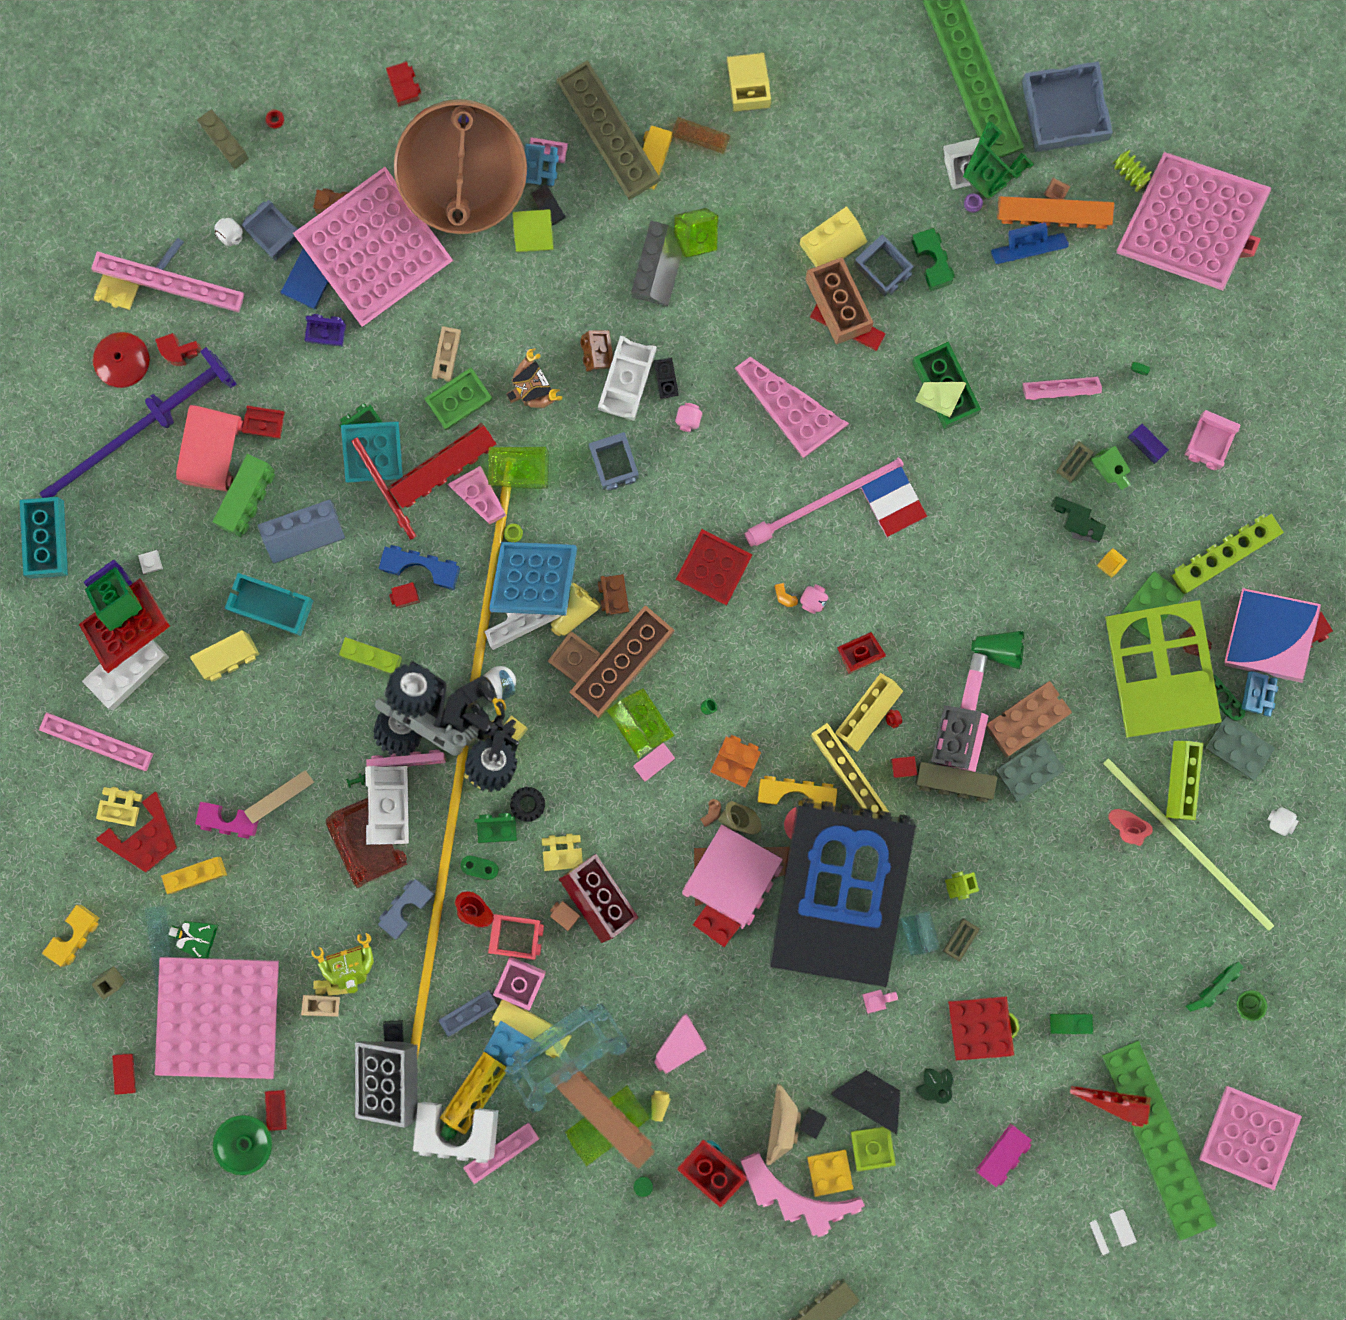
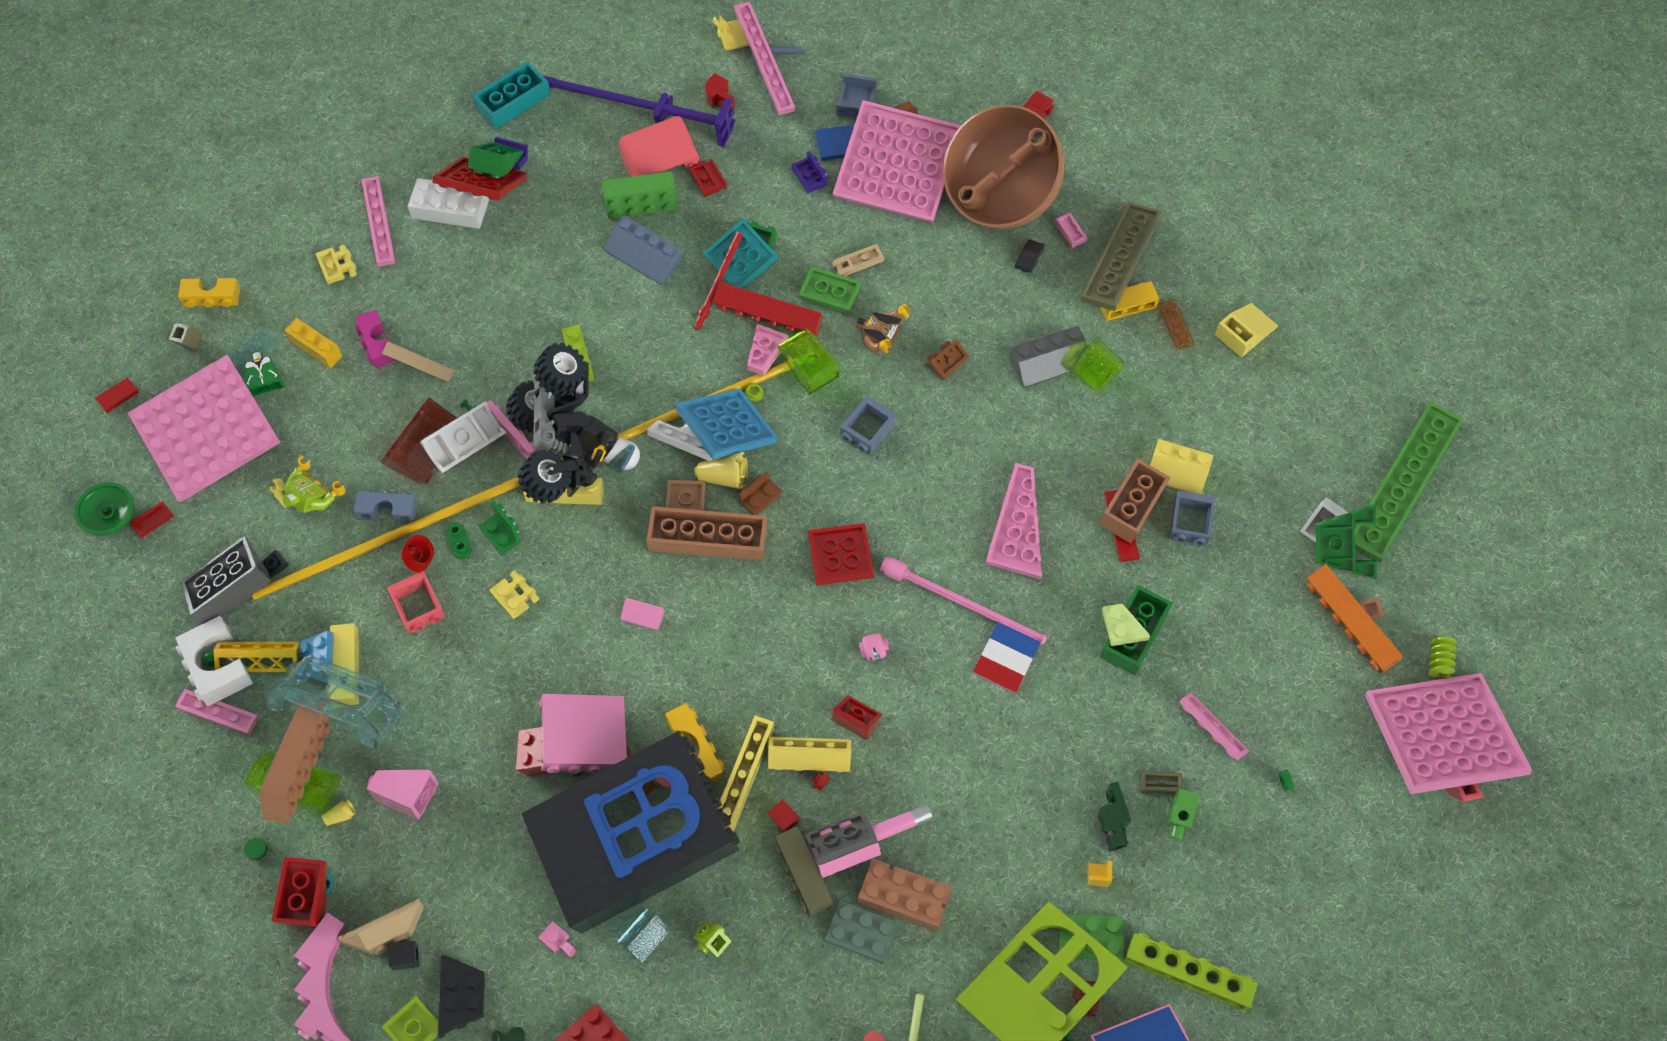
camera: 50 degrees right, 20 degrees down
(127, 369) = (684, 68): red dish -> none
(149, 843) = (320, 301): red wing -> none
(150, 562) = (544, 172): white plate -> none
(223, 139) = (896, 29): olive brick -> none
(225, 656) = (506, 257): light yellow slope -> none
(228, 231) = (832, 72): white head -> none
(269, 604) = (568, 262): teal piece -> none
(270, 115) = (939, 48): red plate -> none
(320, 1005) = (260, 493): tan slope -> none
(396, 561) = (682, 362): blue arch -> none
(404, 595) = (645, 348): red brick -> none
(468, 1013) = (325, 608): sand blue plate -> none
(519, 983) = (376, 628): bright pink brick -> none
(527, 792) = (542, 550): black tyre -> none
(533, 230) = (1001, 257): lime slope -> none
(535, 158) = (1052, 225): dark azure plate -> none
(564, 915) = (460, 628): nougat brick -> none
(598, 898) = (492, 643): dark red slope -> none
(627, 378) = (941, 391): white piece -> none
(640, 722) = (668, 581): clear neon green slope -> none
(666, 378) = (966, 421): black slope -> none
(688, 417) = (948, 456): bright pink head -> none
(708, 706) = (722, 627): green hinge -> none
(713, 813) = (631, 690): nougat arm -> none
(736, 761) = (689, 677): orange plate -> none
(740, 818) = (641, 711): olive piece -> none
(784, 598) = (857, 624): light orange arm -> none
(830, 1172) = (366, 1005): yellow plate -> none
(928, 243) = (1222, 564): green arch -> none
(954, 936) = (681, 984): olive tile -> none
(973, 202) = (1303, 553): medium lavender plate -> none
(1001, 648) = (951, 830): green cone -> none
(1029, 242) = (1310, 615): blue bracket -> none
(1066, 106) = (1444, 570): sand blue tile -> none
(1147, 443) = (1228, 833): dark purple panel -> none
(1211, 440) = (1278, 887): bright pink panel -> none

